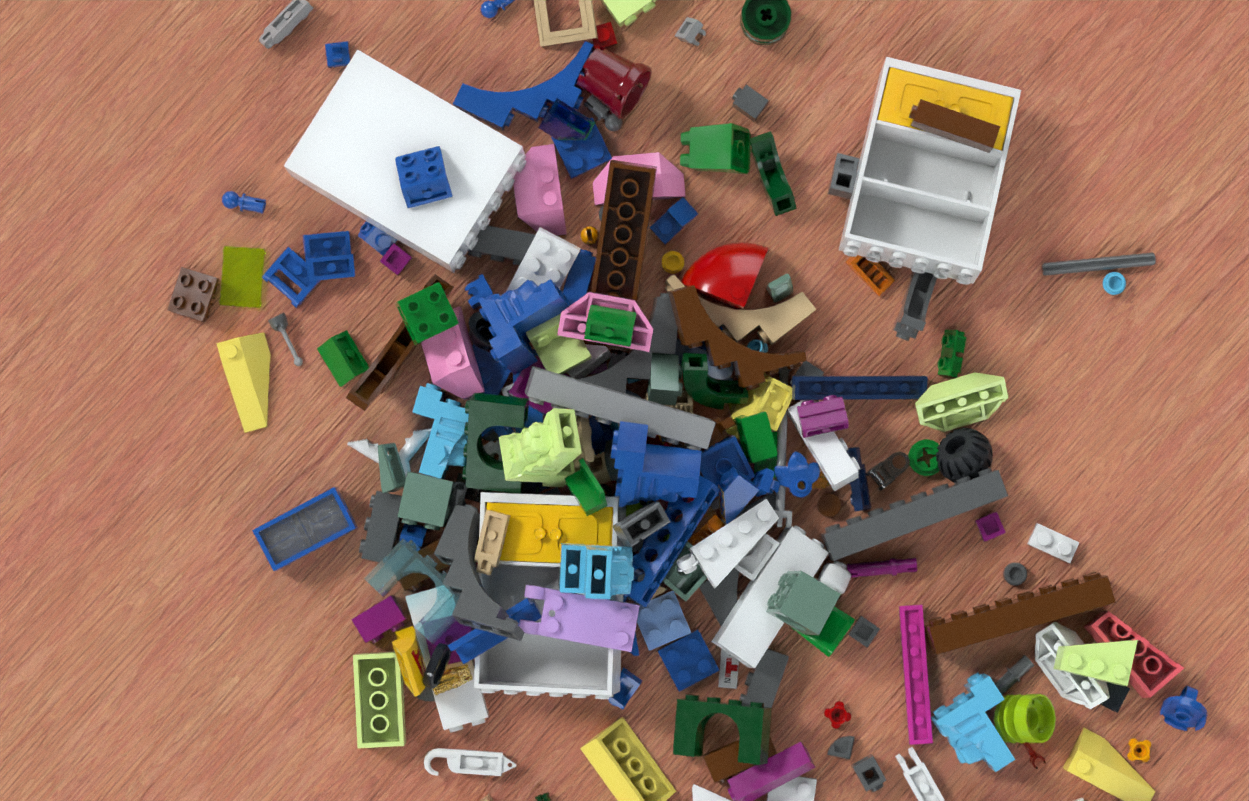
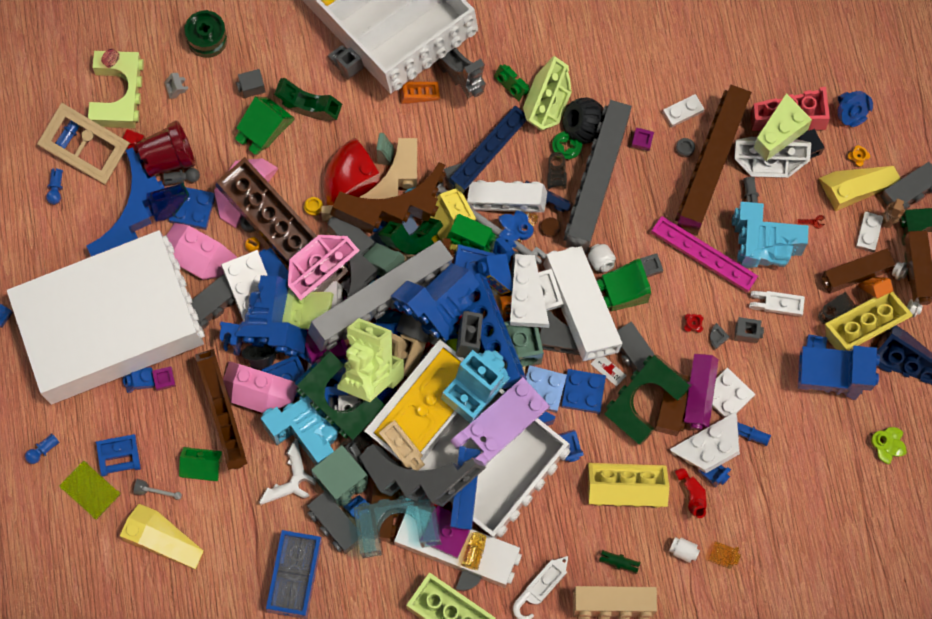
camera: 55 degrees left, 15 degrees down
(193, 294) = (73, 530): reddish brown hinge -> none
(328, 255) = (124, 419): blue slope -> none
(378, 619) = (395, 573): magenta brick -> none
(391, 469) = (303, 485): sand green slope -> none
(410, 659) = (440, 567): yellow slope -> none
(423, 177) = (126, 304): blue bracket -> none
(427, 313) = (216, 376): green bracket -> none
(436, 666) = (458, 549): black tile -> none
(586, 489) = (417, 353): green panel -> none
(610, 325) = (322, 260): green panel -> none
(674, 220) = (287, 185): blue slope -> none
(687, 563) = (519, 331): white plate -> none
(802, 602) = (602, 278): sand green brick -> none
(822, 416) = (489, 180): magenta brick -> none
(886, 567) = (621, 218): magenta pin -> none
(1025, 718) = (786, 202): lime wheel -> none

